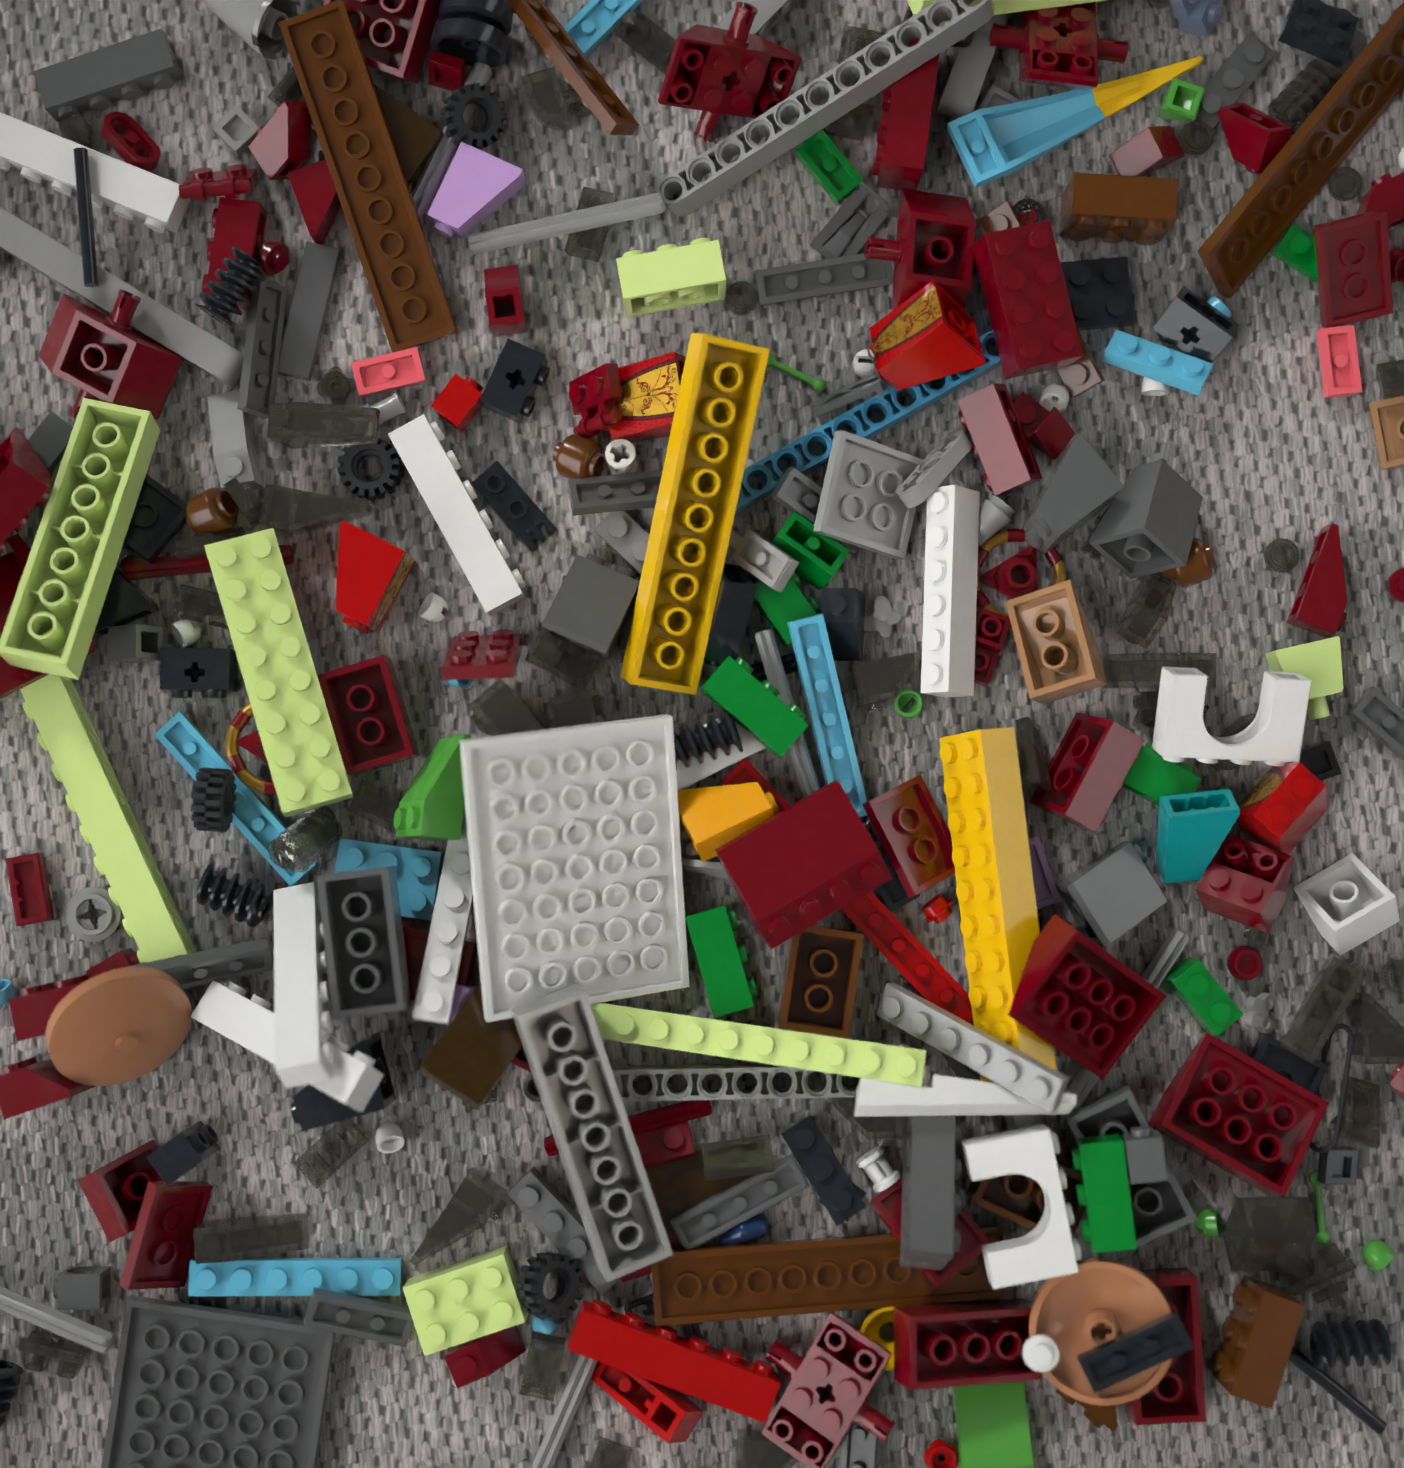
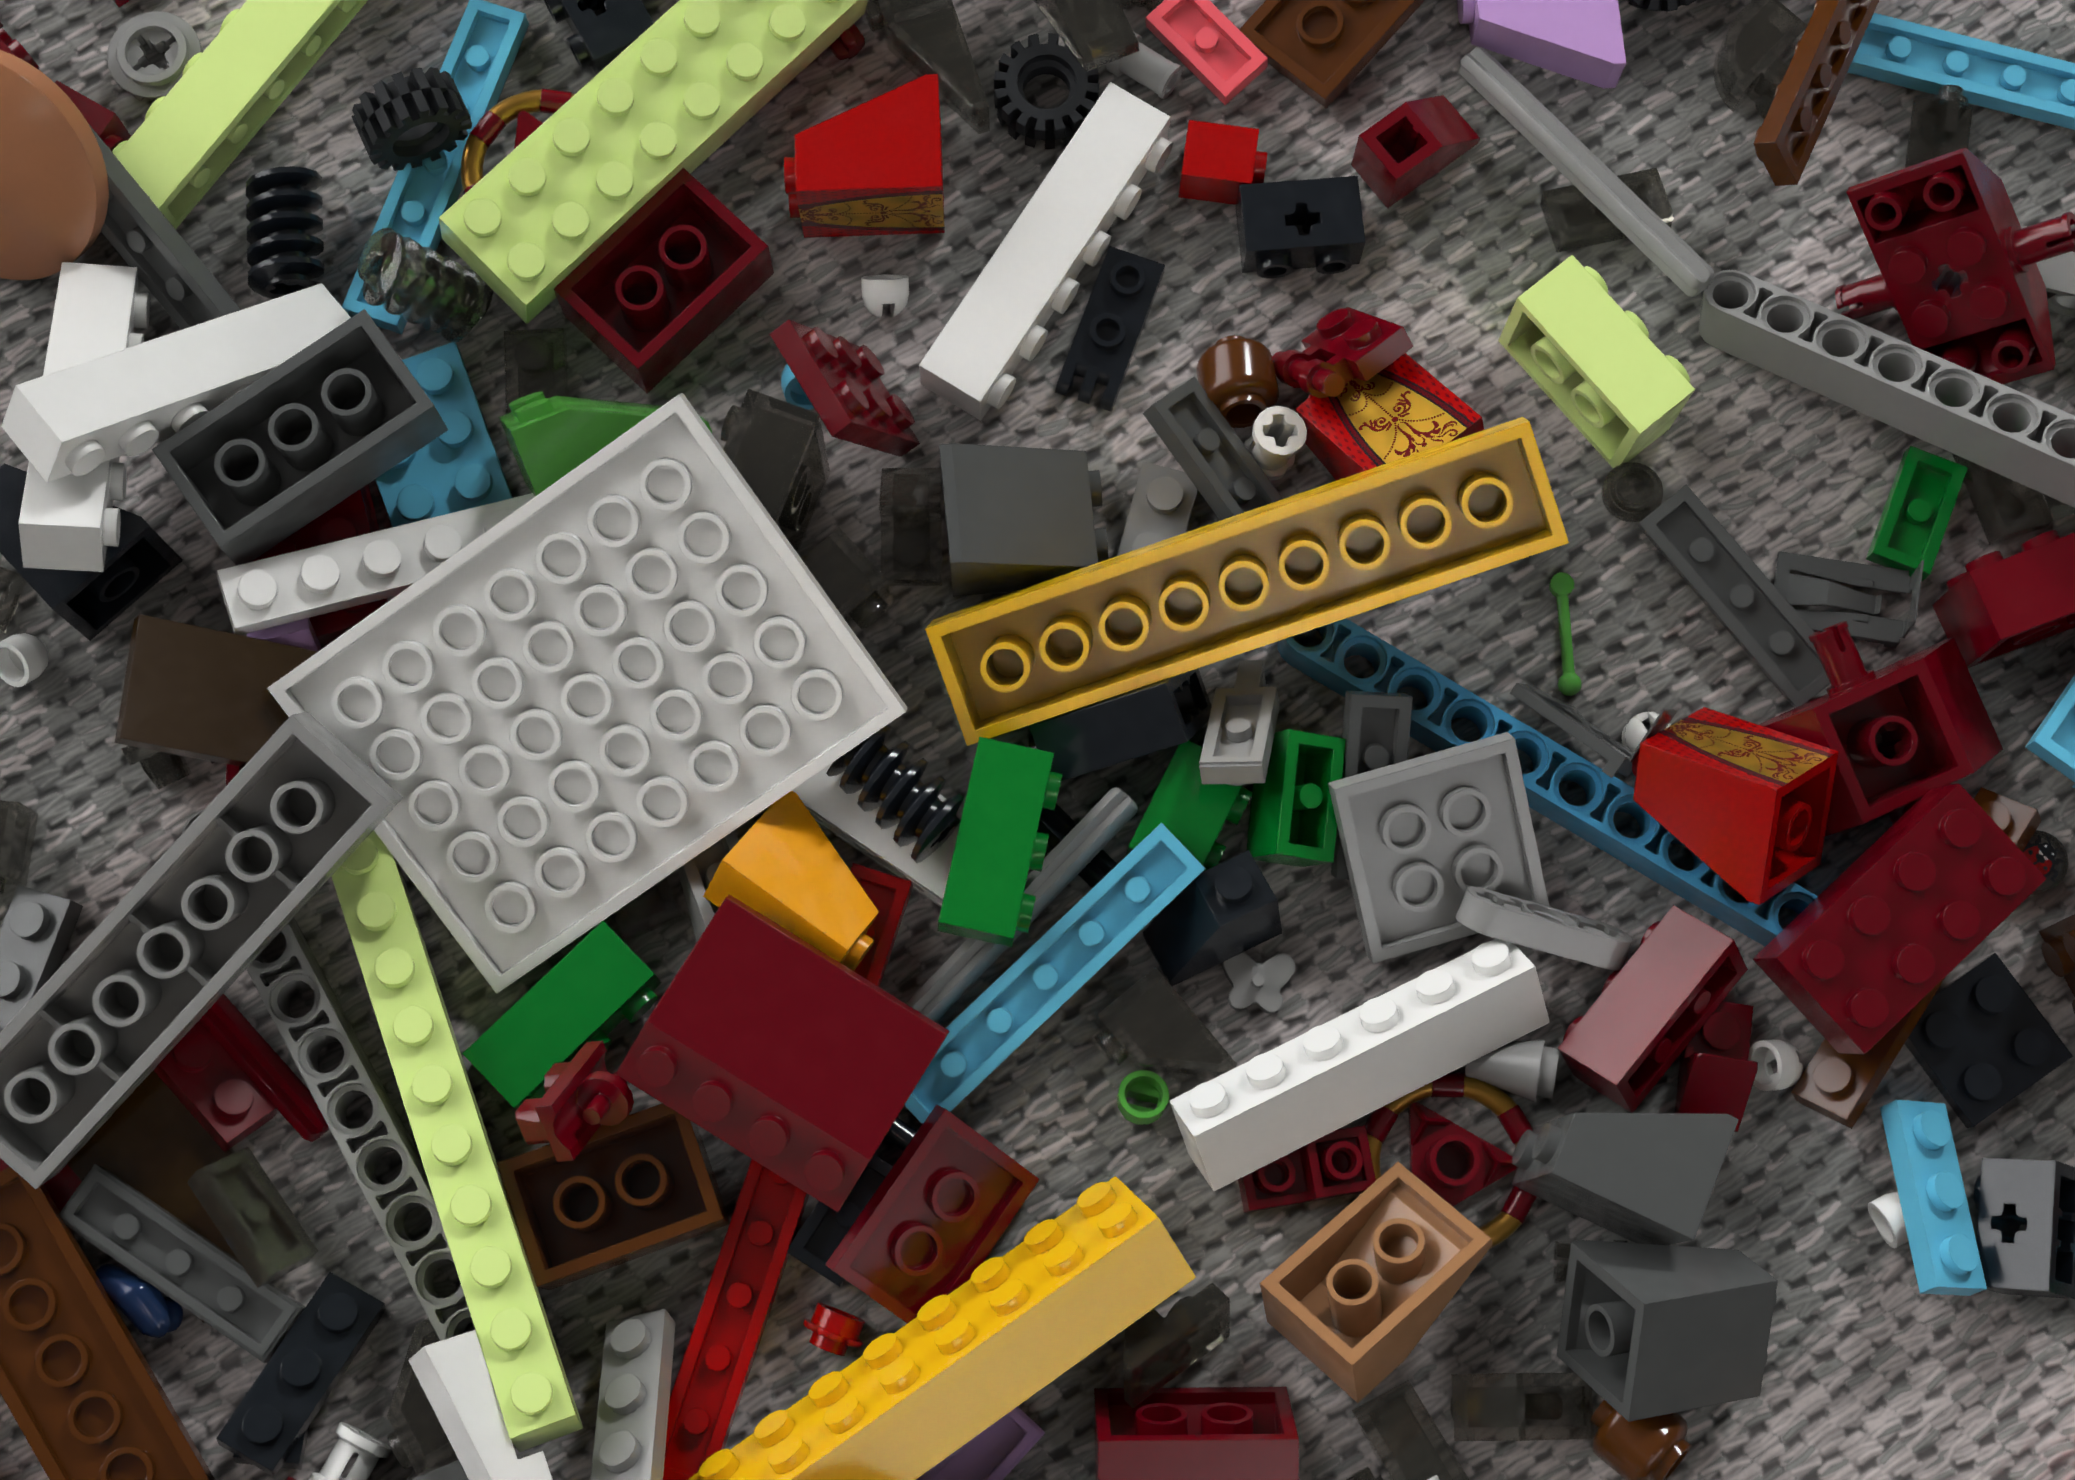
camera: 55 degrees right, 10 degrees down
(772, 972) = (575, 1103): none -> dark red hips

